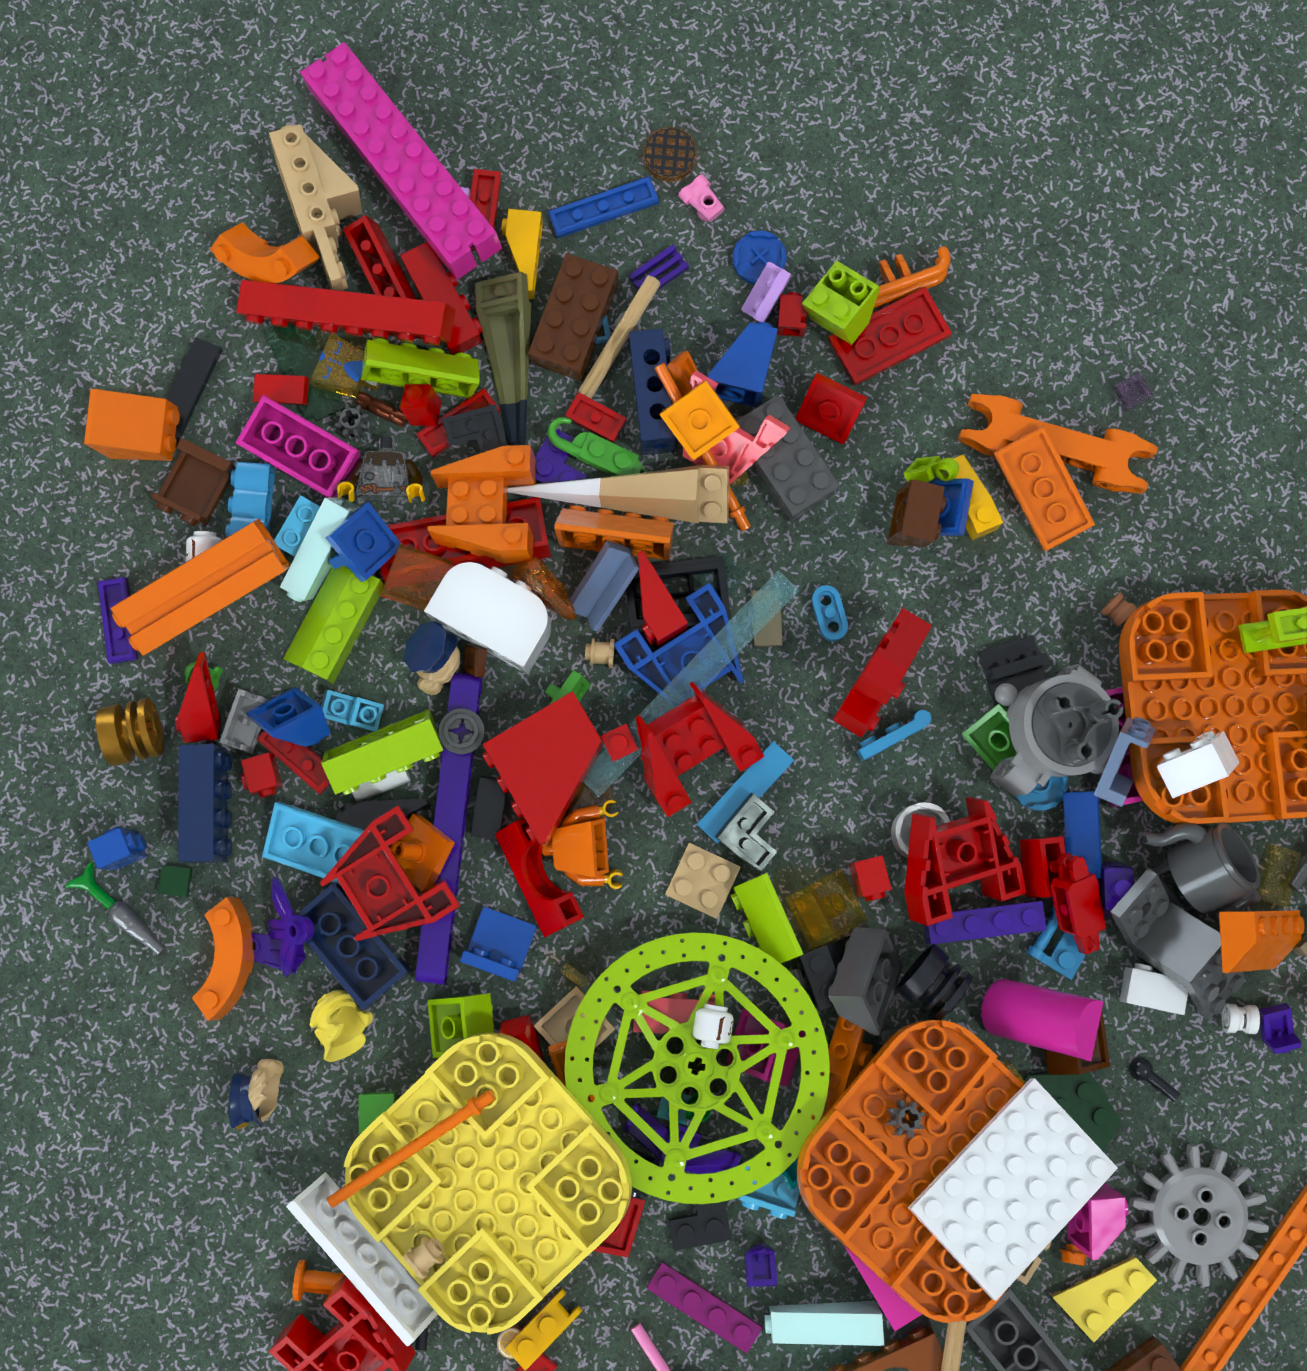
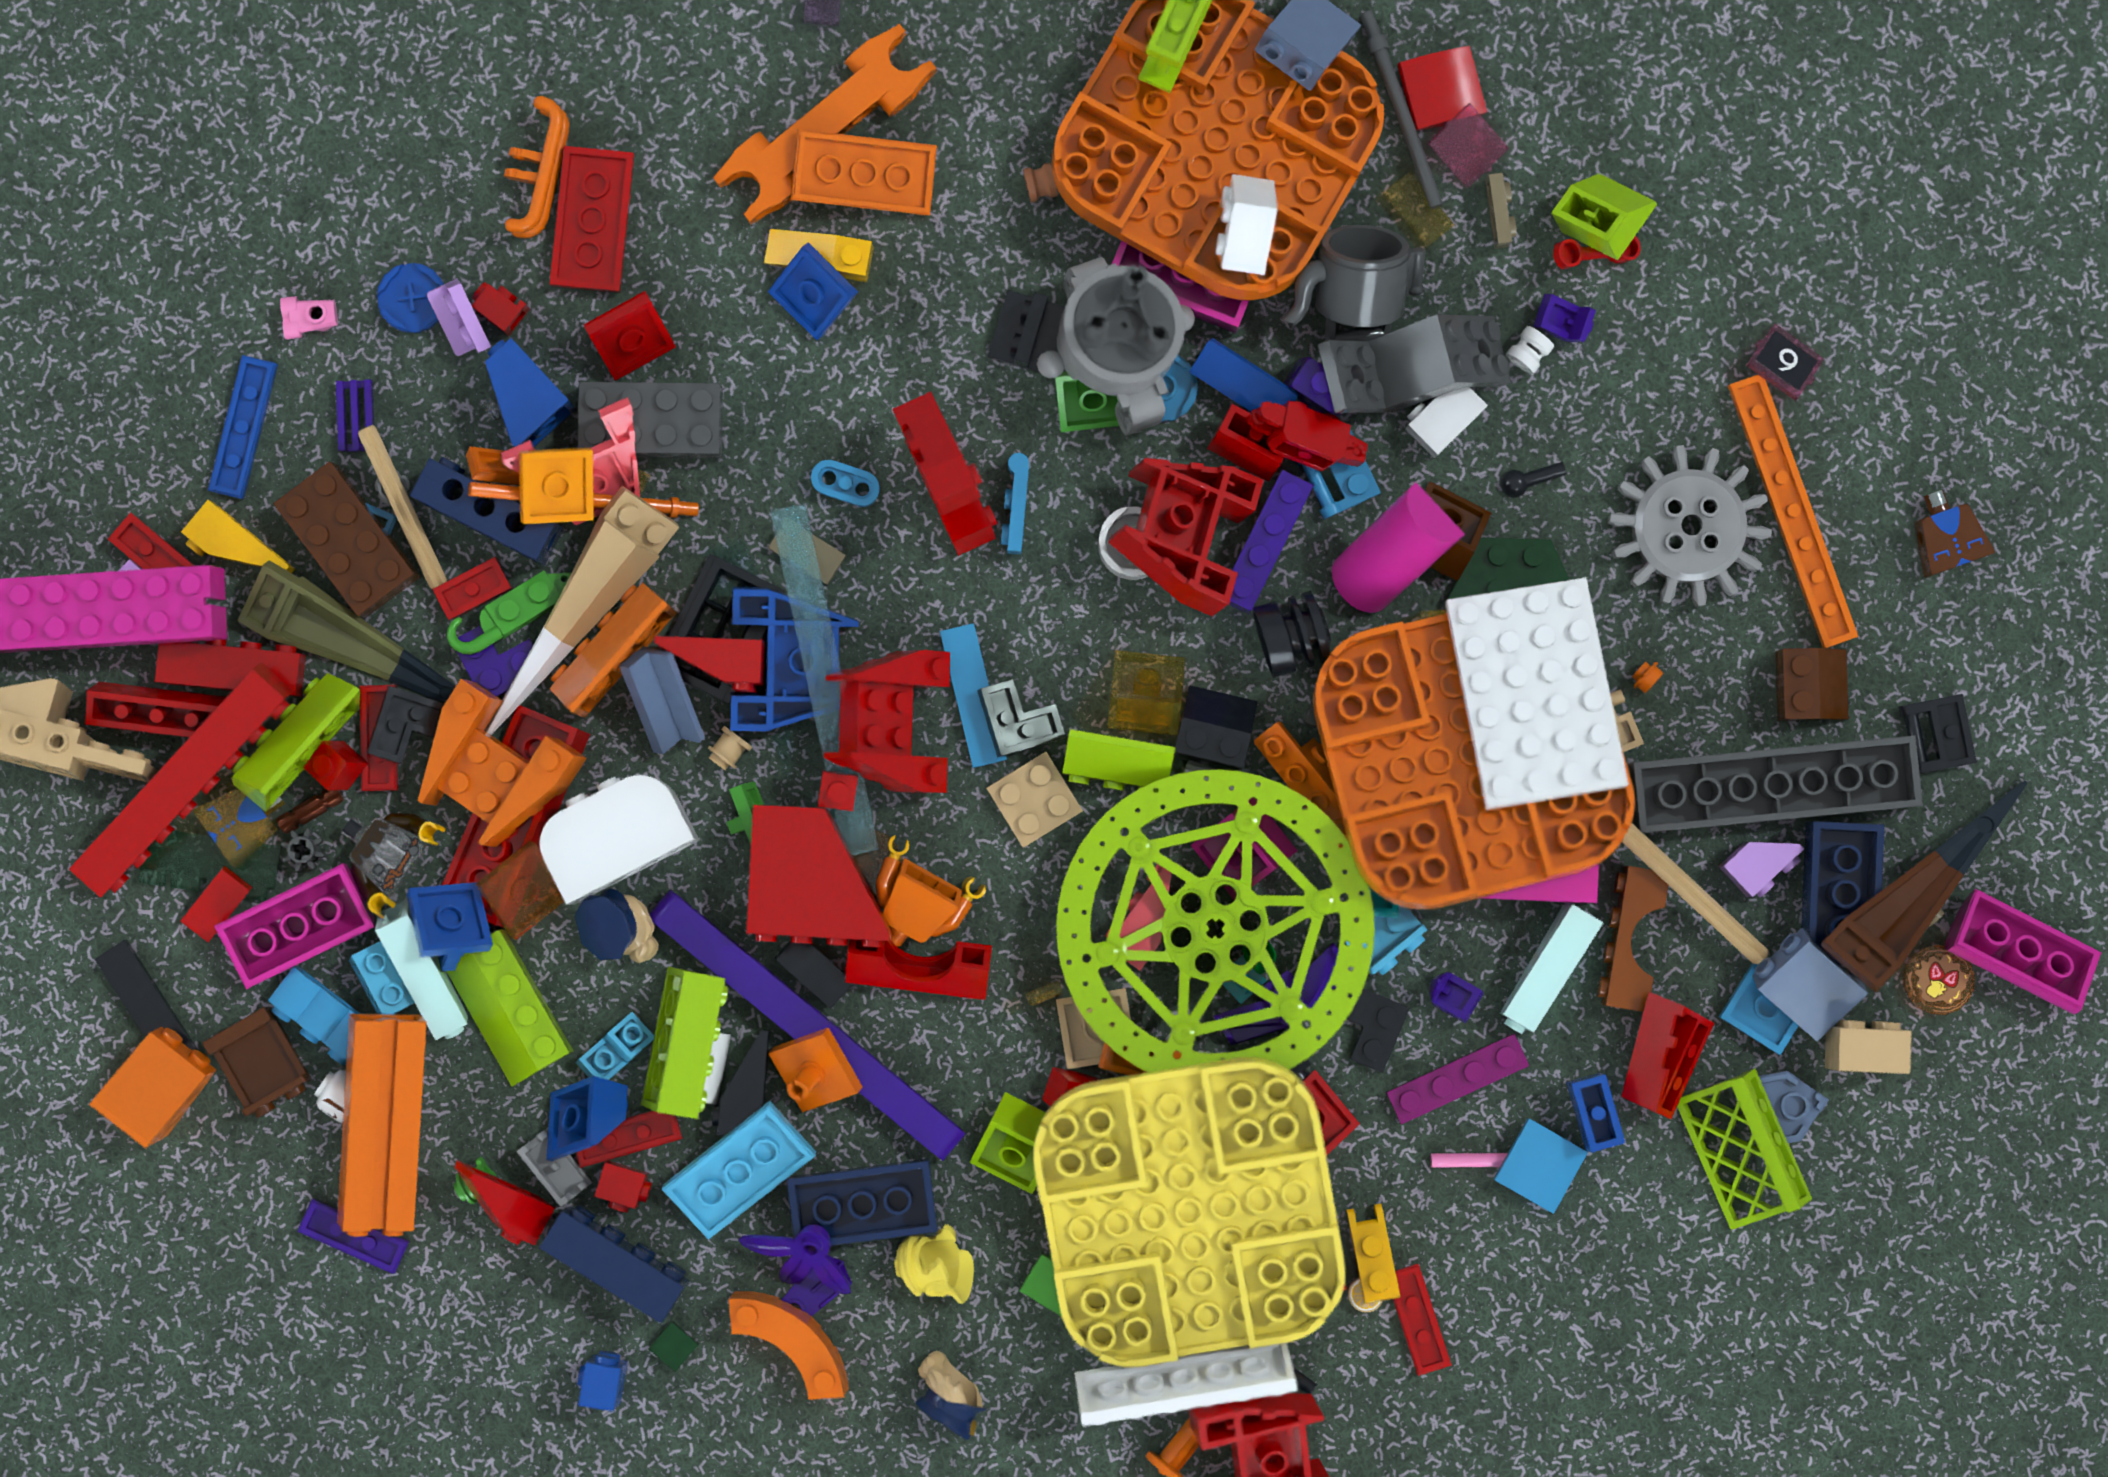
camera: 65 degrees left, 5 degrees up
(118, 912) = (668, 1425): flat silver piece -> none
(129, 732) = (487, 1292): pearl gold wheel -> none
(258, 260) = (64, 834): orange brick -> none
(381, 886) = (823, 1130): red wedge -> none
(424, 1256) = (1221, 1318): tan brick -> none
(453, 721) = (700, 949): dark grey gear -> none
(473, 1107) = (1107, 1175): orange bar -> none
(474, 660) = (649, 885): reddish brown tile -> none
(499, 944) = (961, 1050): blue bracket -> none
(545, 586) = (623, 761): clear orange slope -> none
(670, 154) = (231, 316): tile -> none
(713, 1026) = (1186, 885): white head -> none
(842, 302) = (524, 247): lime slope -> none
(866, 979) = (1242, 699): dark grey slope -> none
(870, 878) = (1145, 627): red brick -> none
(909, 1125) = (1390, 751): dark grey gear -> none
(916, 514) = (803, 324): reddish brown slope -> none
(925, 469) = (760, 279): lime plate -> none
(1098, 1222) = (1625, 630): slope -> none
(1106, 1296) = (1707, 673): light yellow wing -> none
(1114, 786) = (1211, 322): sand blue panel -> none
(1258, 938) = (1460, 282): orange slope -> none

